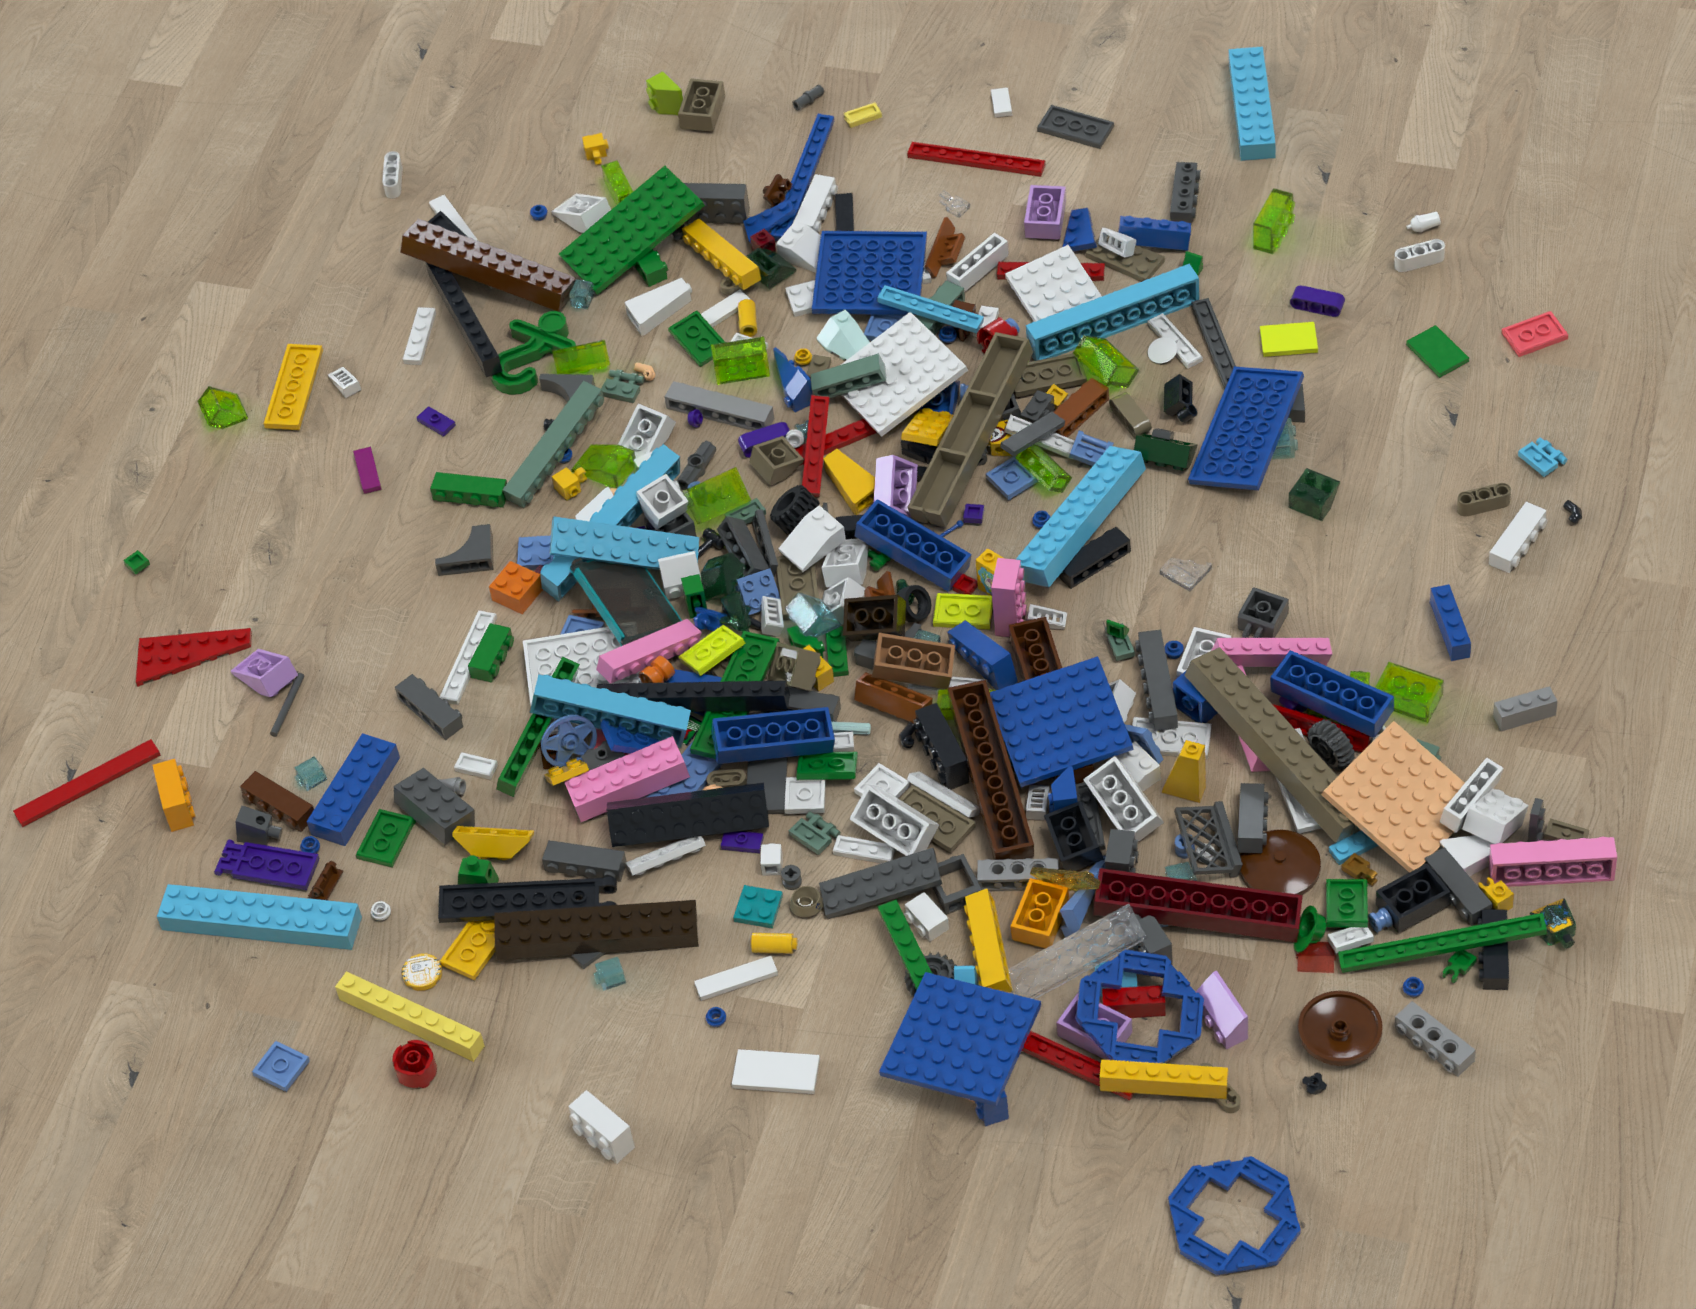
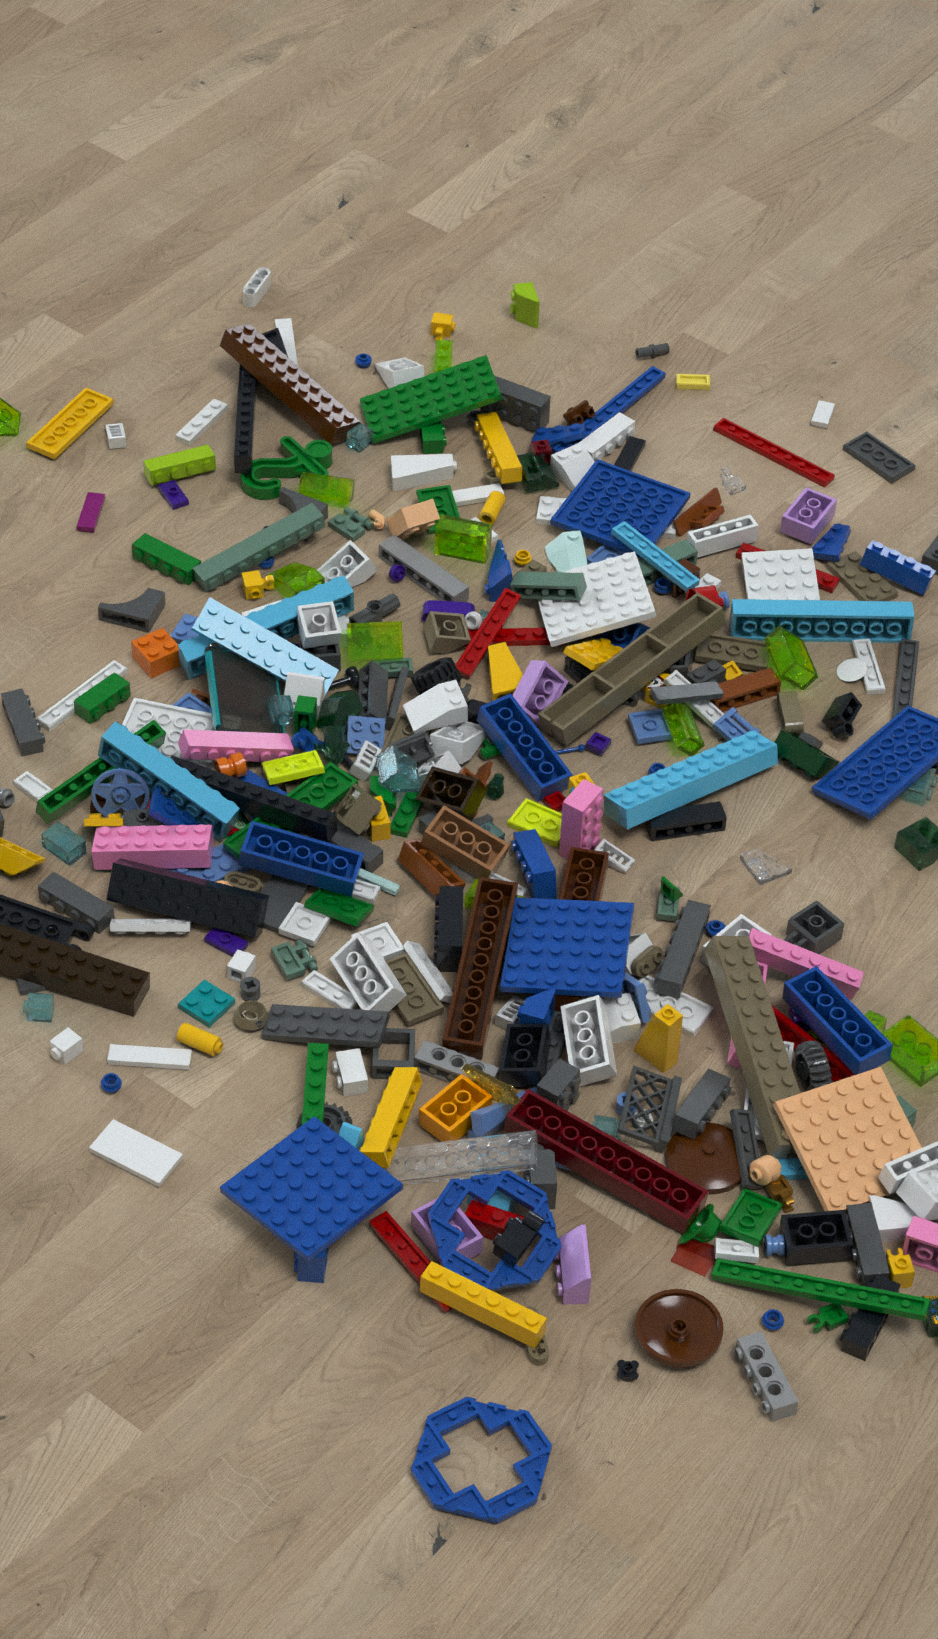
camera: 15 degrees right, 5 degrees down
(426, 389) = (179, 465): none -> lime brick
(539, 808) = (64, 843): none -> clear light blue brick
(656, 999) = (66, 1046): none -> white brick
(668, 598) = (280, 709): none -> clear light blue brick
(685, 360) = (413, 519): none -> light nougat brick
(701, 105) = (553, 323): dark tan brick -> none
(814, 584) = (416, 746): none -> dark grey hinge
(905, 736) = (425, 910): black arm -> none
(923, 600) = (509, 797): black tyre -> none
(1127, 243) = (860, 564): white slope -> none
(1133, 705) = (647, 961): none -> dark tan plate
(1165, 1007) = (517, 1237): none -> black hinge
(1191, 701) = (702, 979): blue brick -> none
(1195, 261) = (921, 607): green slope -> none
(1311, 842) = (745, 1145): none -> dark grey tile
(1339, 855) = (765, 1170): none -> light nougat head

